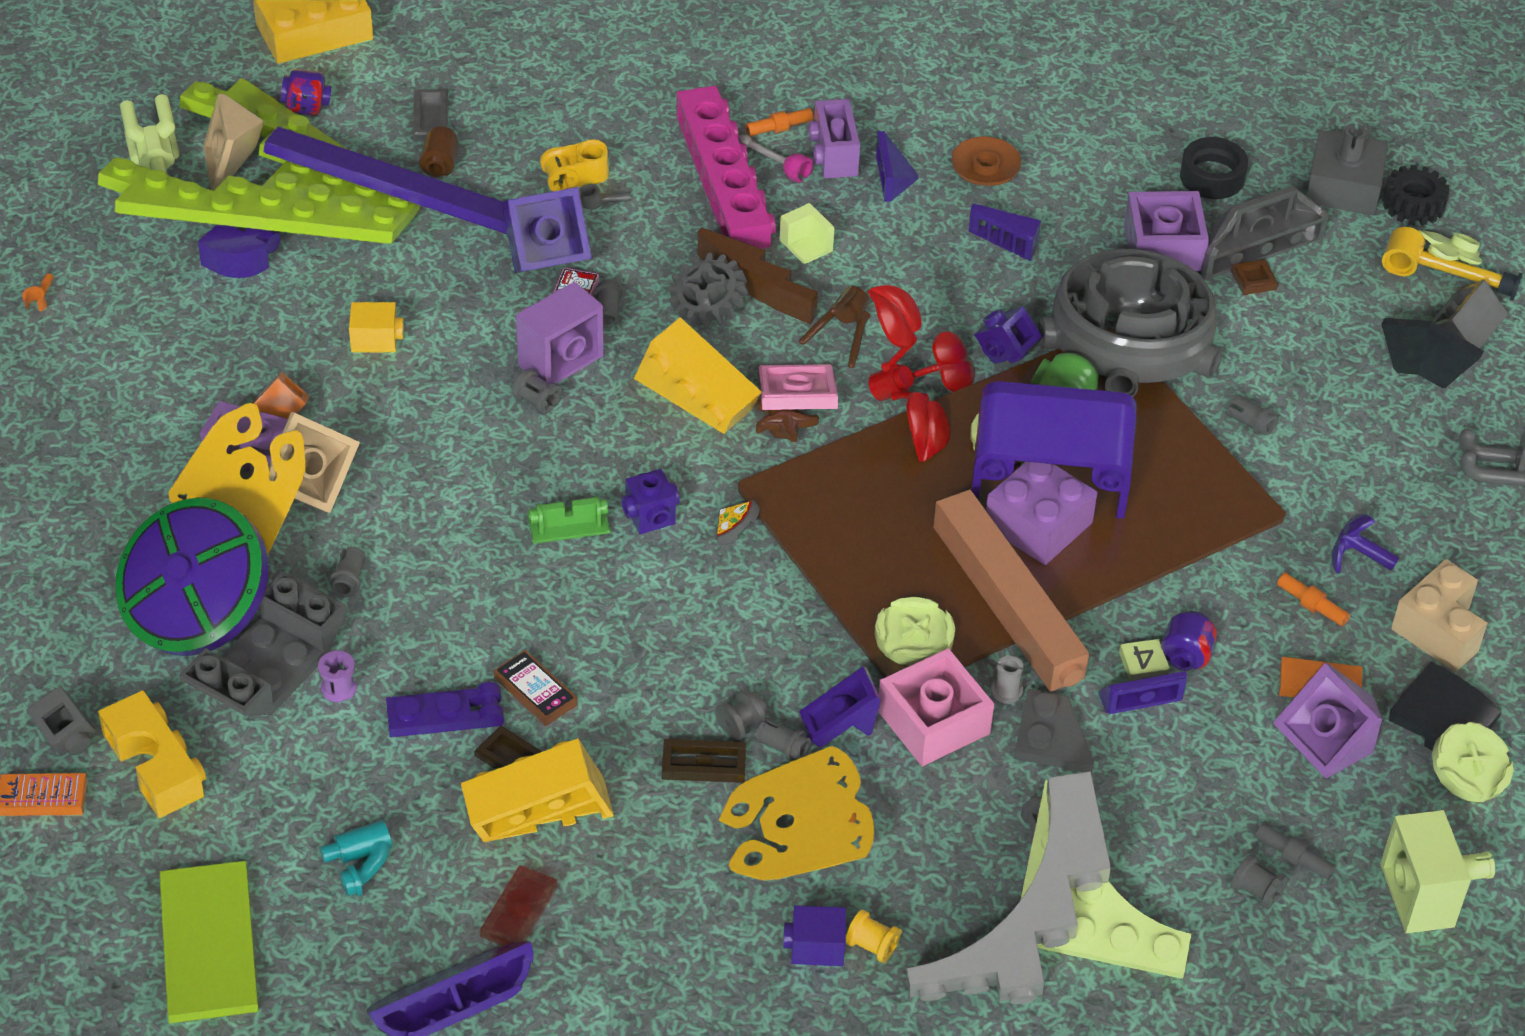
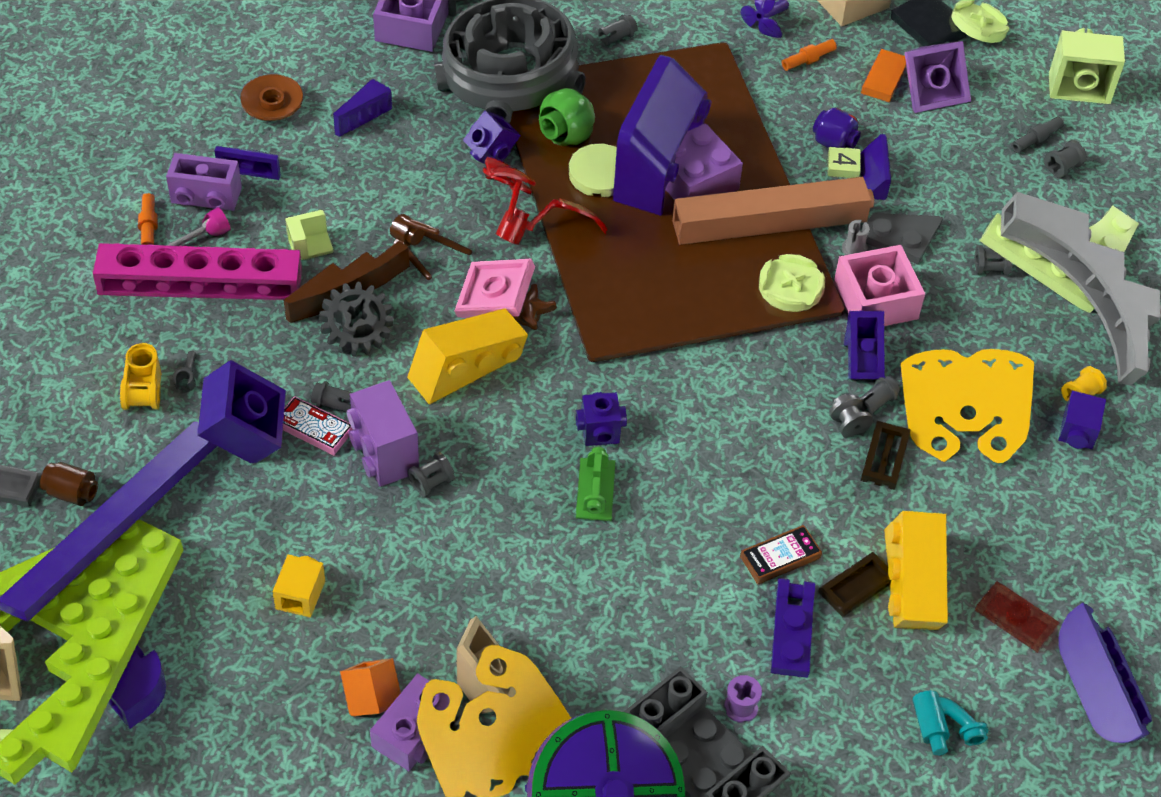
camera: 75 degrees left, 5 degrees up
(345, 578) = (612, 670): dark grey pin -> none
(734, 520) = (633, 369): tile -> none

